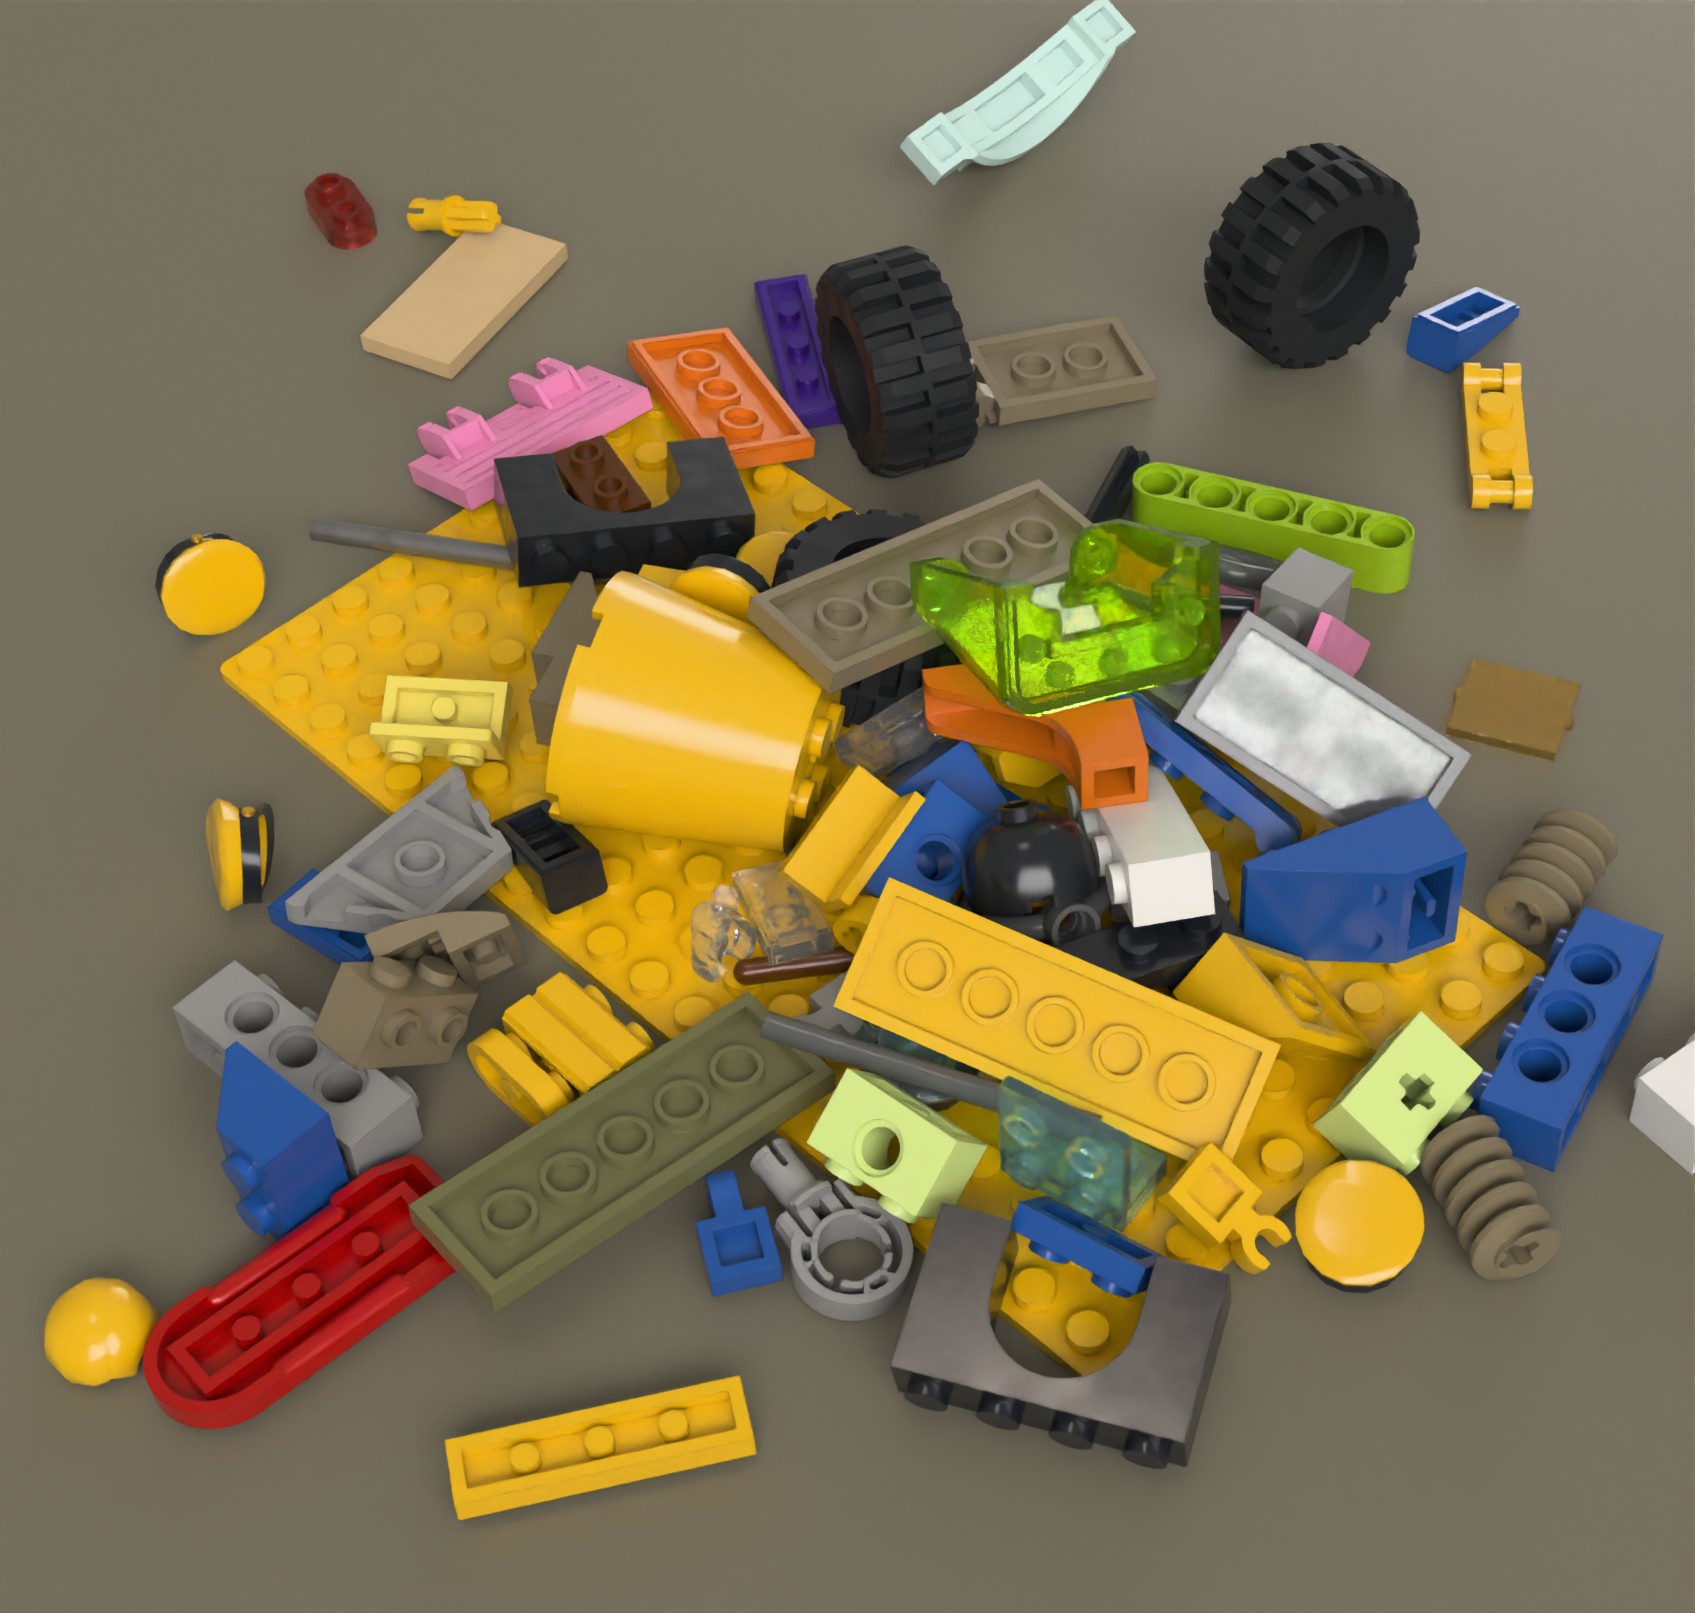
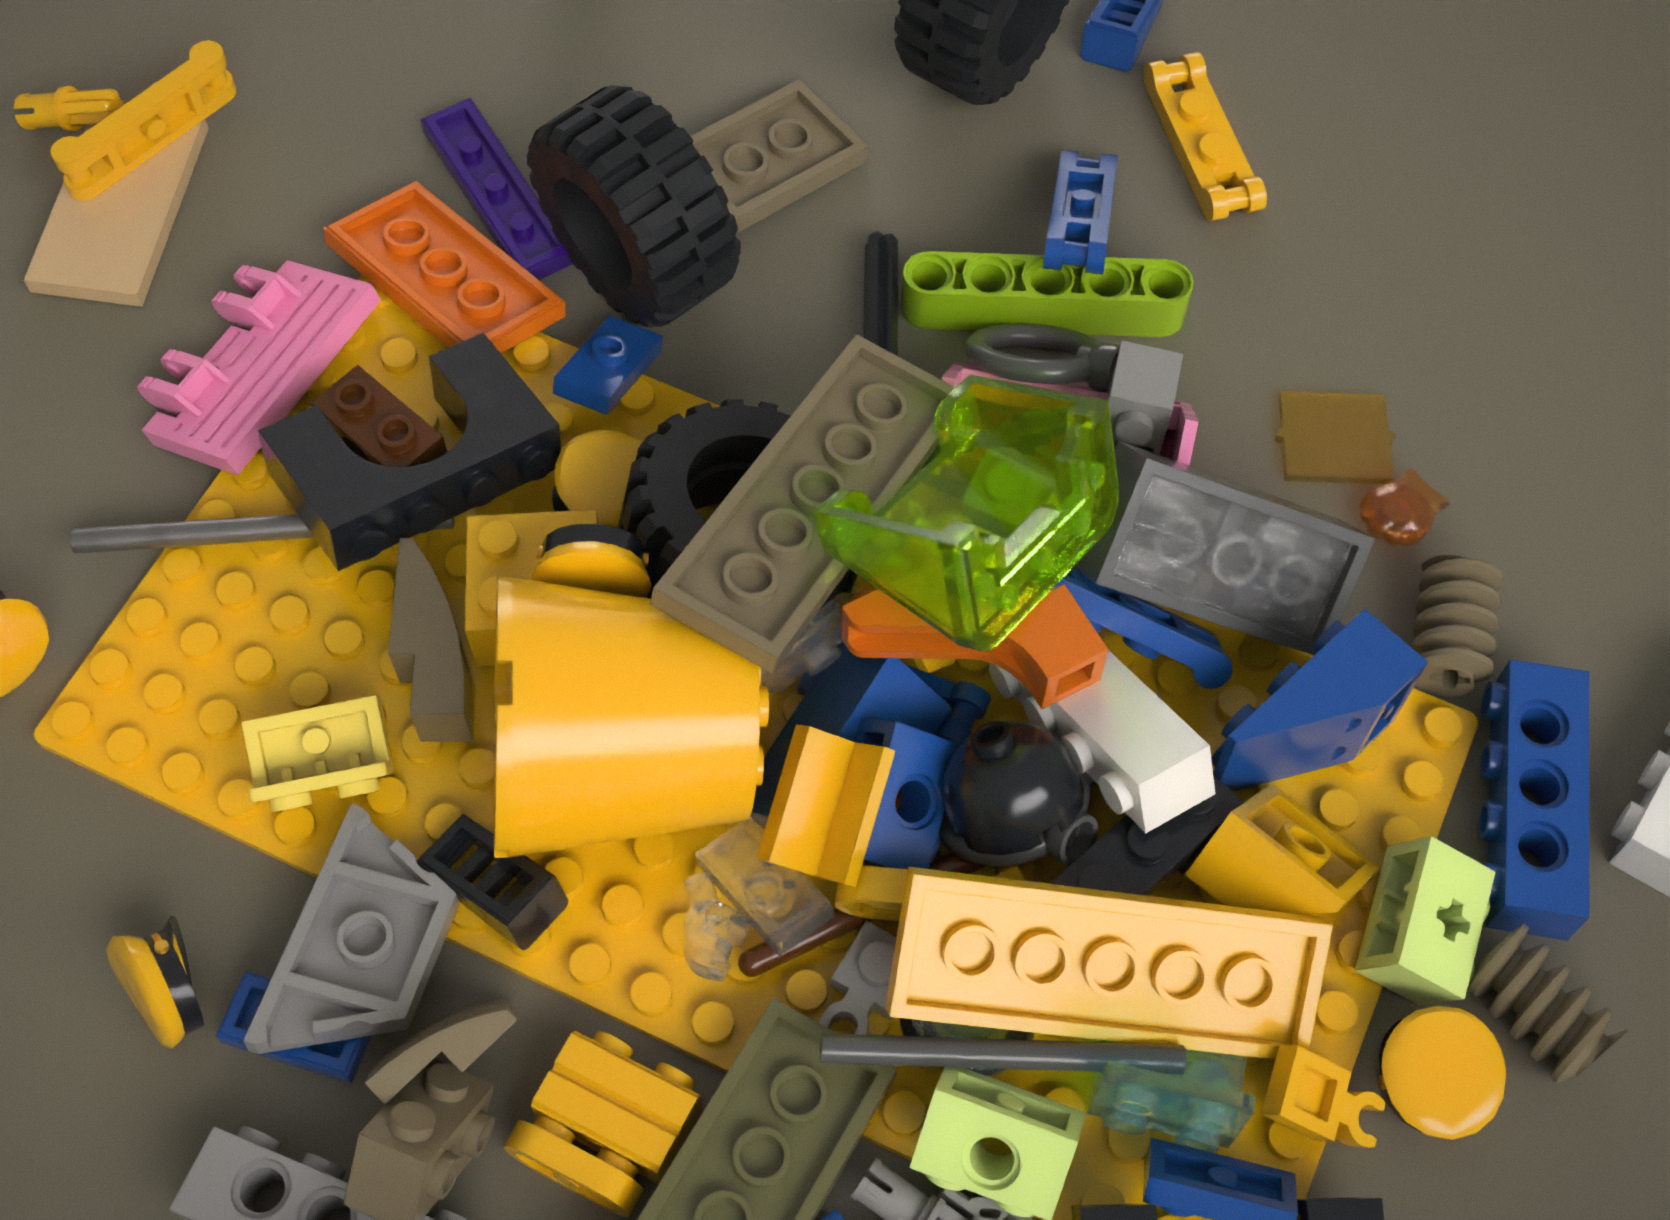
camera: 25 degrees left, 15 degrees up
(512, 234) = (145, 123): none -> yellow plate
(830, 492) = (607, 365): none -> blue plate
(1329, 461) = (1081, 212): none -> blue plate
(1549, 777) = (1401, 509): none -> clear orange animal

